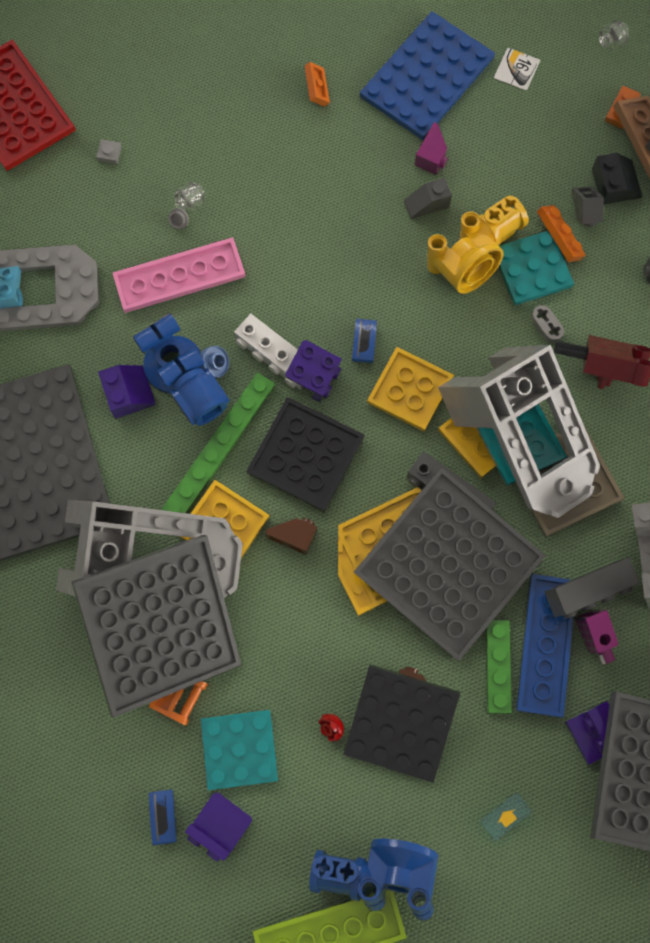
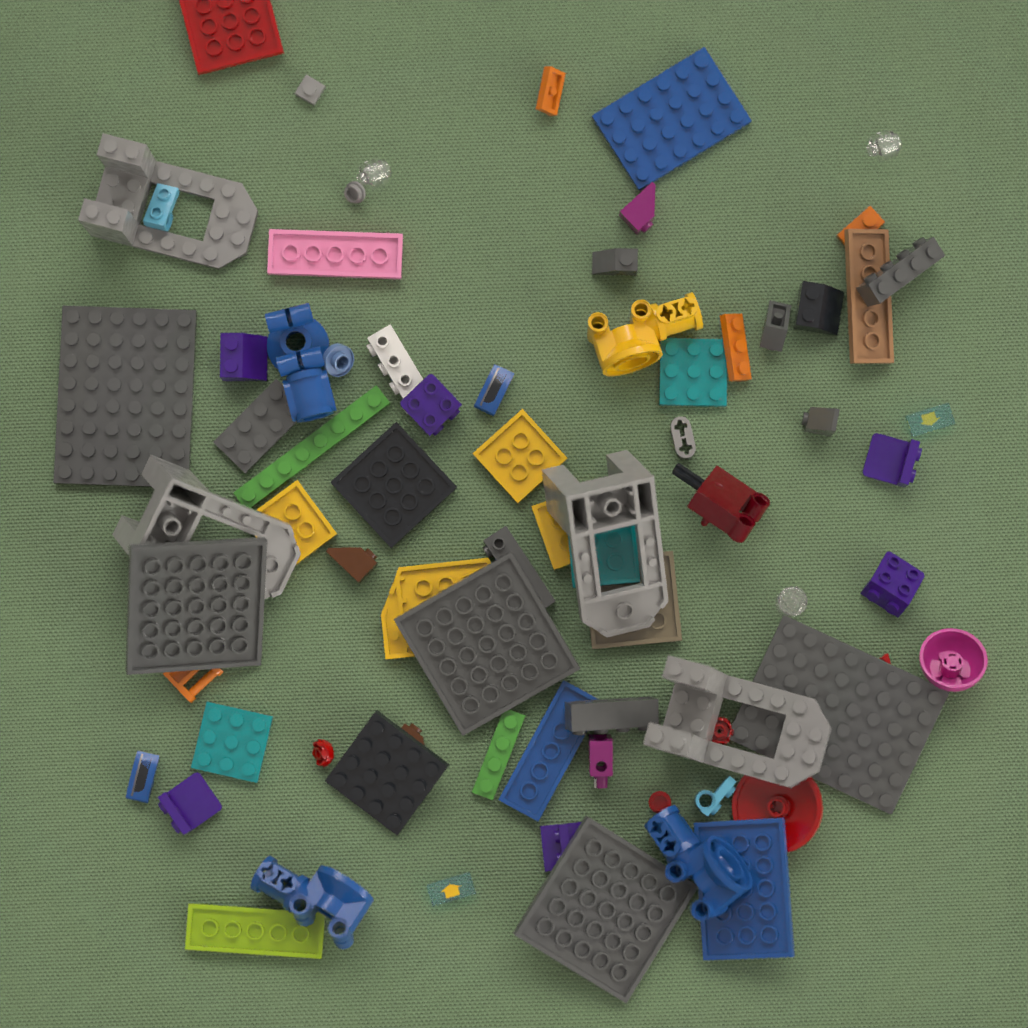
camera: 20 degrees right, 10 degrees up
(162, 447) = (257, 428): none -> dark grey plate
(517, 69) = (769, 144): sticker -> none

